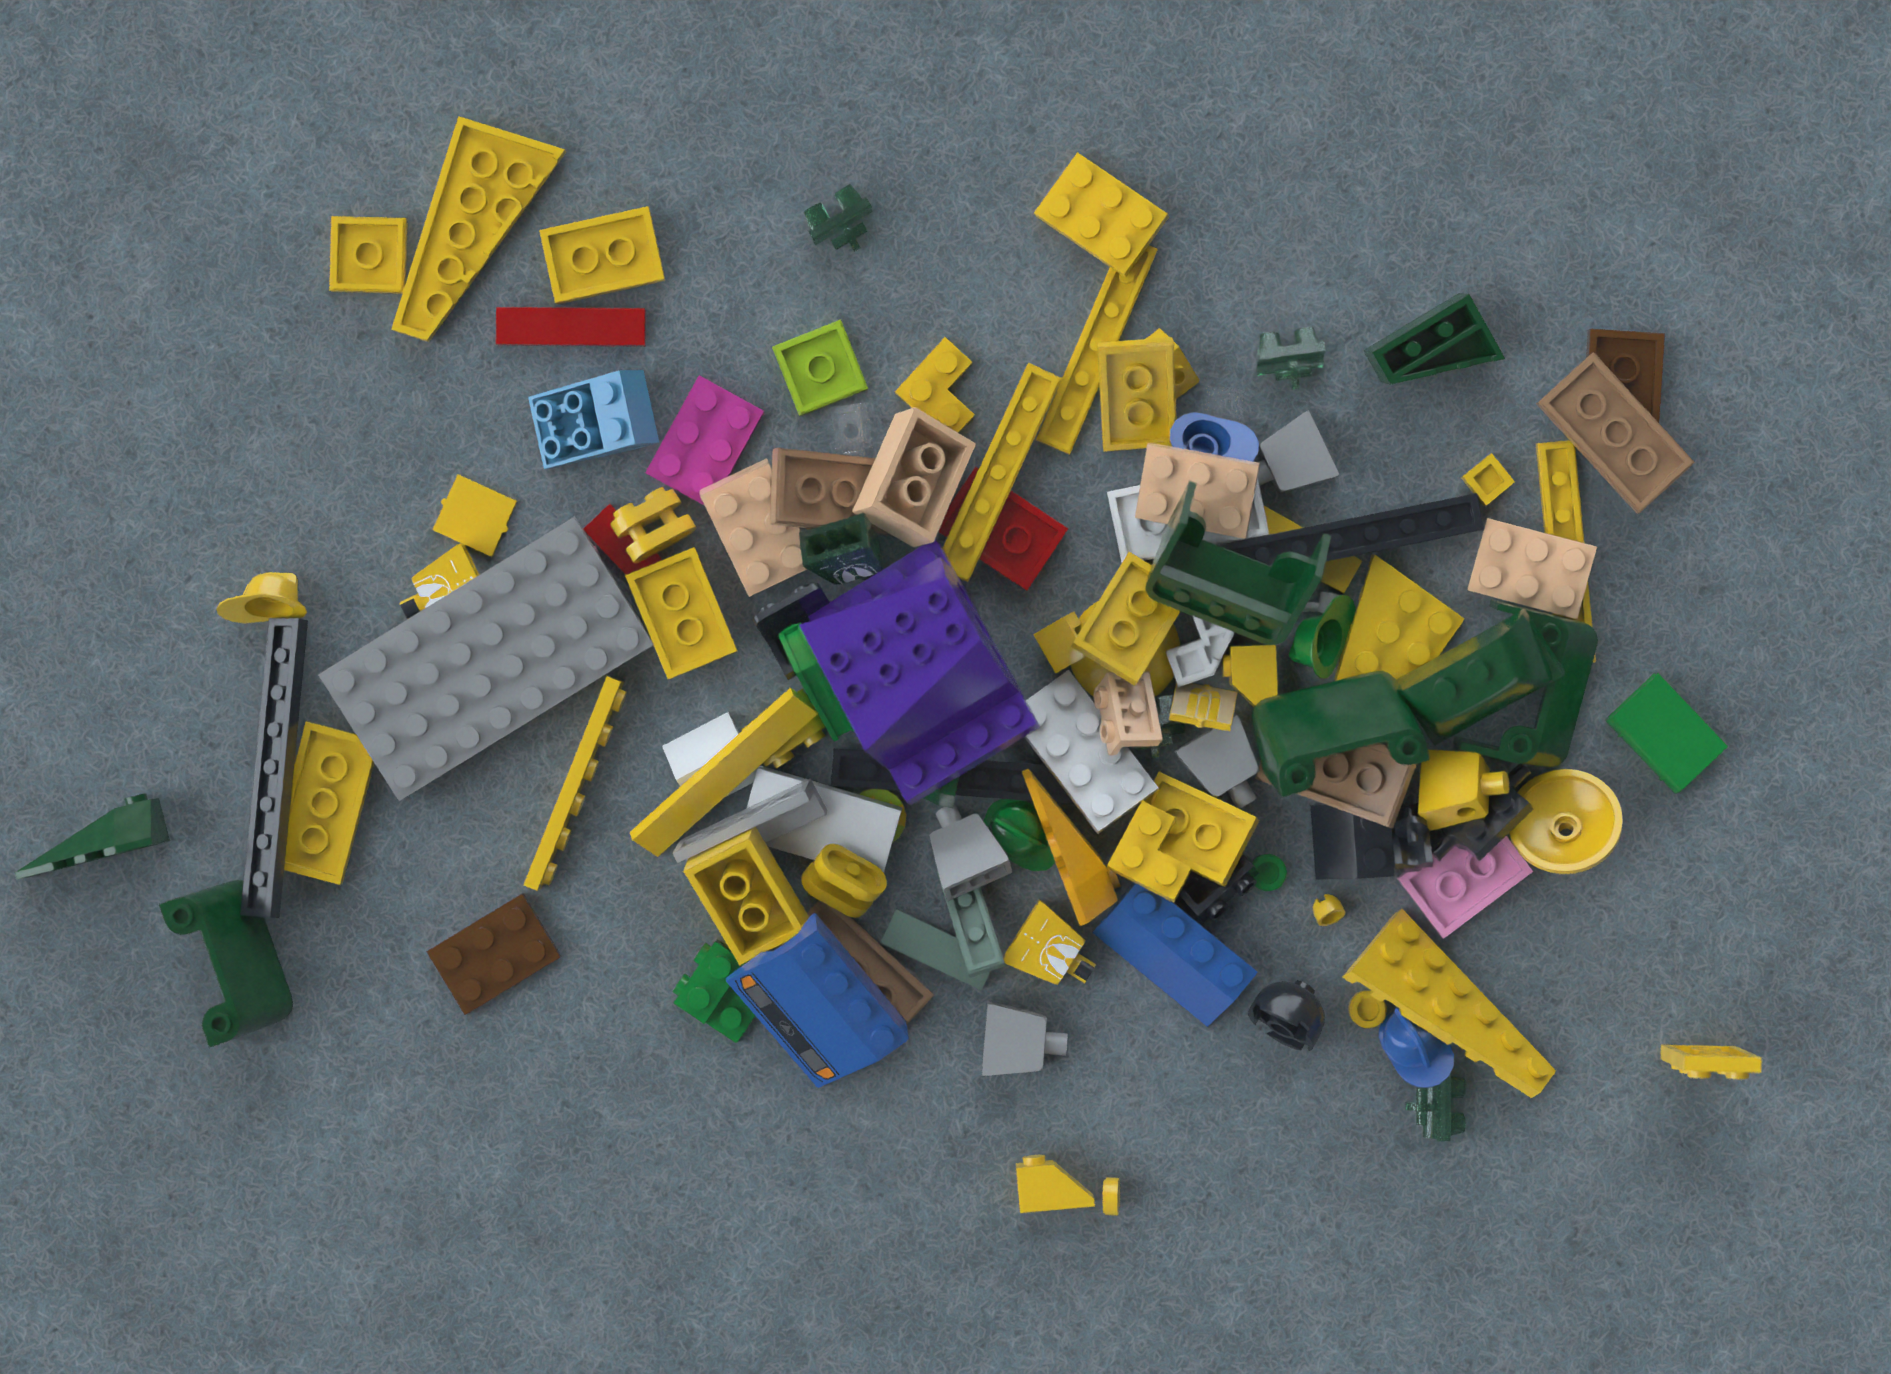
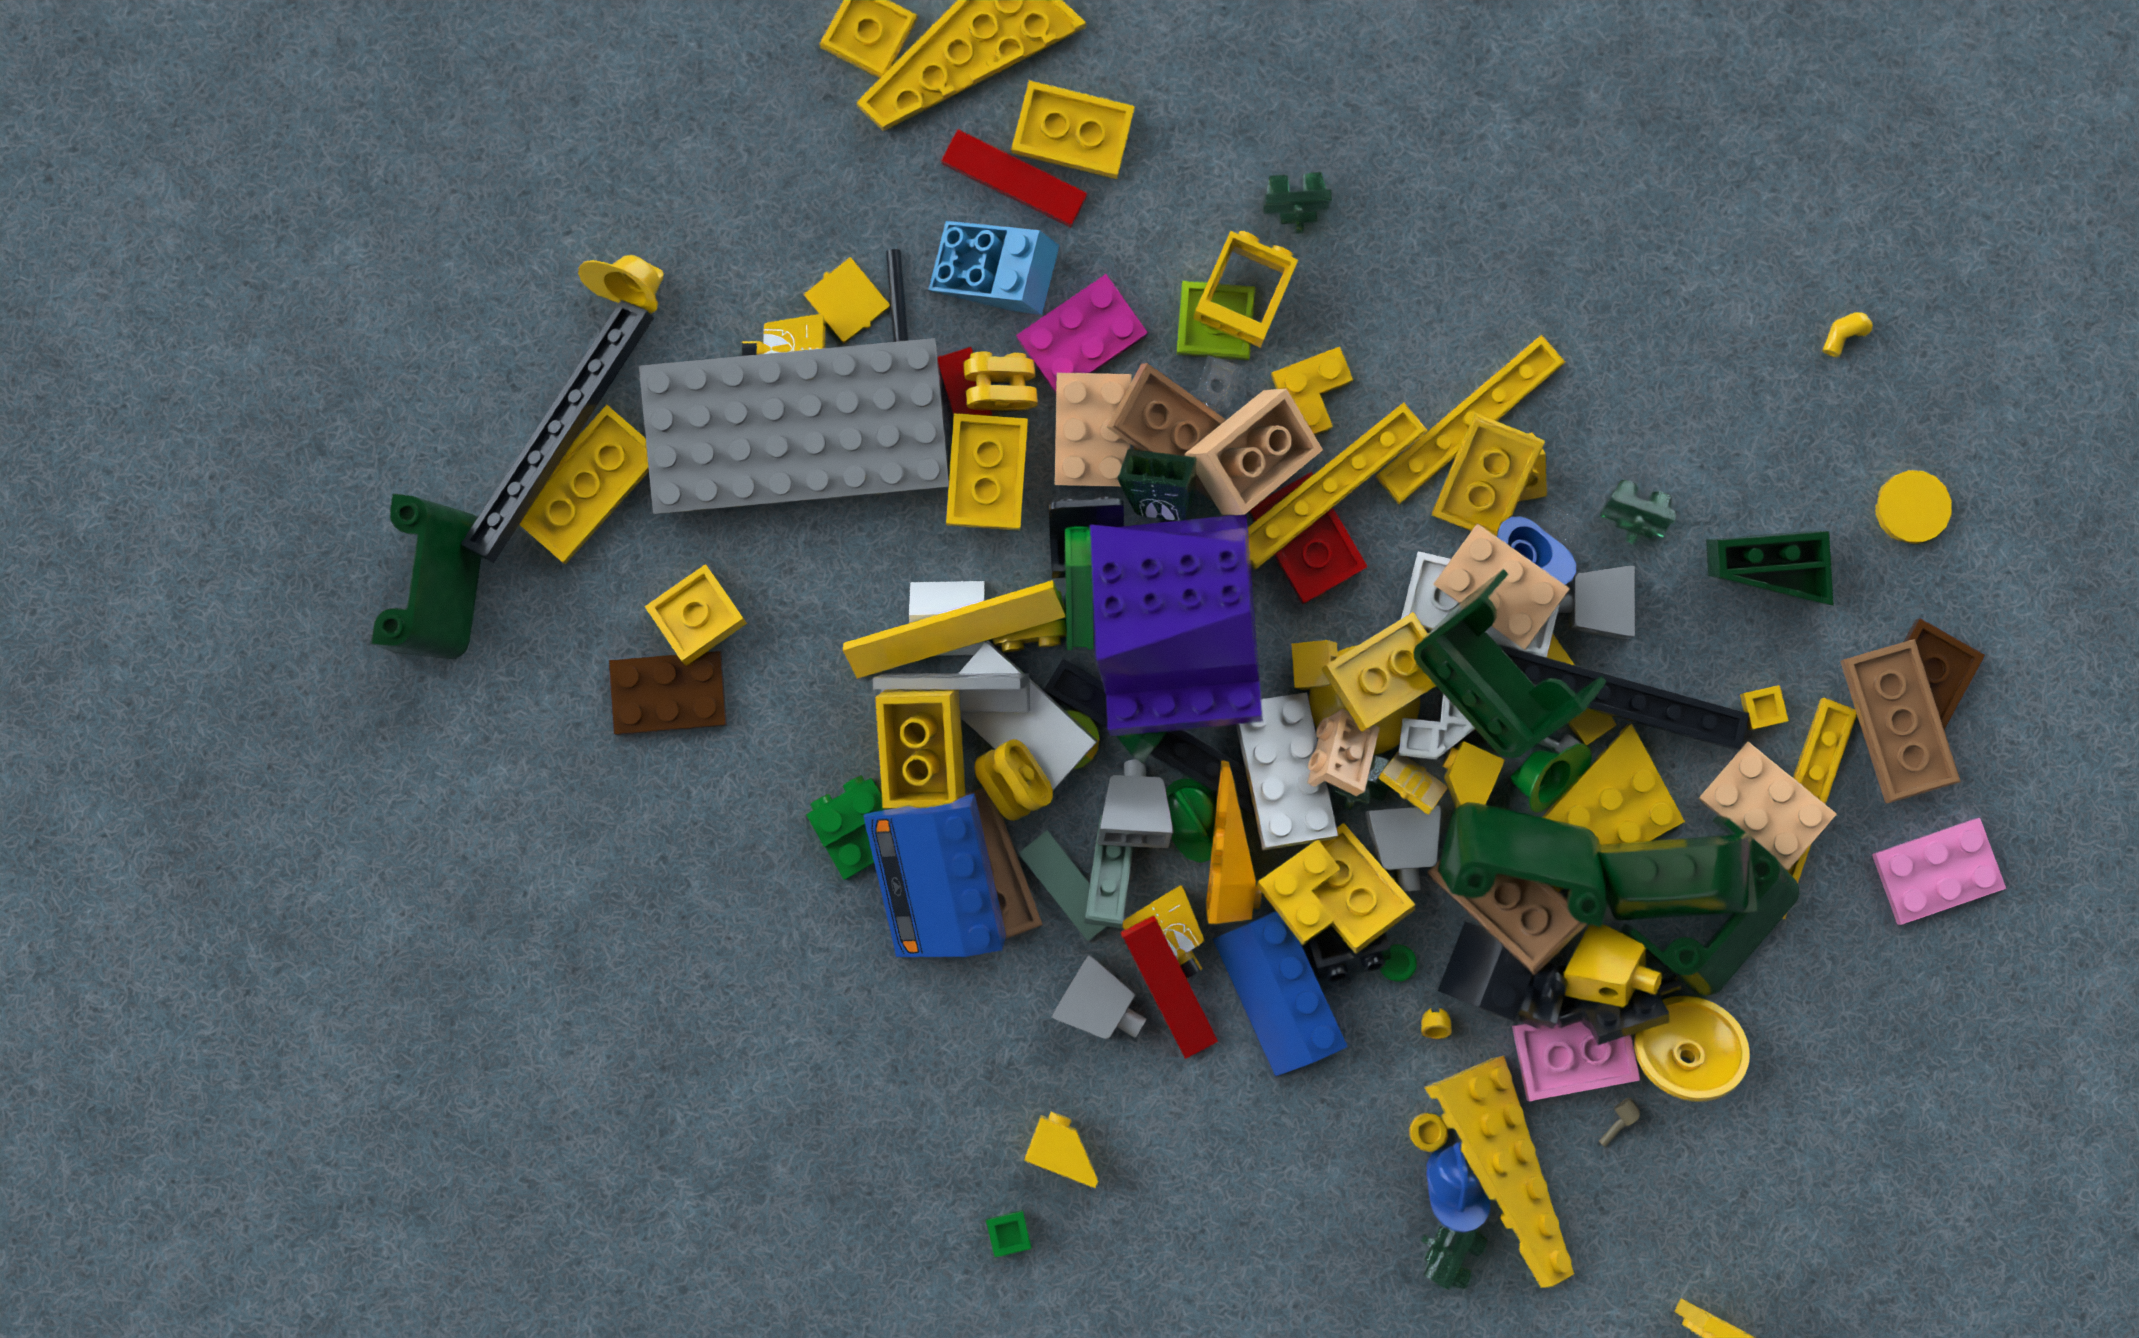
camera: 25 degrees right, 5 degrees down
(117, 832) = (391, 419): dark green wedge -> none
(483, 872) = (695, 615): none -> yellow plate
(519, 491) = (897, 296): none -> black bar
(570, 799) = (806, 586): yellow plate -> none
(833, 366) = (1231, 321): none -> yellow window
(1038, 1282) = (1008, 1233): none -> green plate
(1073, 996) = (1169, 986): none -> red tile
(1101, 214) = (1530, 307): yellow plate -> none
(1111, 1196) = (1113, 1187): yellow tile -> none
(1290, 1012) = (1358, 1099): black cylinder -> none
(1398, 90) = (1843, 328): none -> yellow arm
(1538, 226) = (1913, 507): none -> yellow tile
(1538, 906) = (1628, 1115): none -> dark tan hand
(1666, 733) = (1819, 1014): green piece -> none
(1714, 550) = (1938, 871): none -> bright pink plate

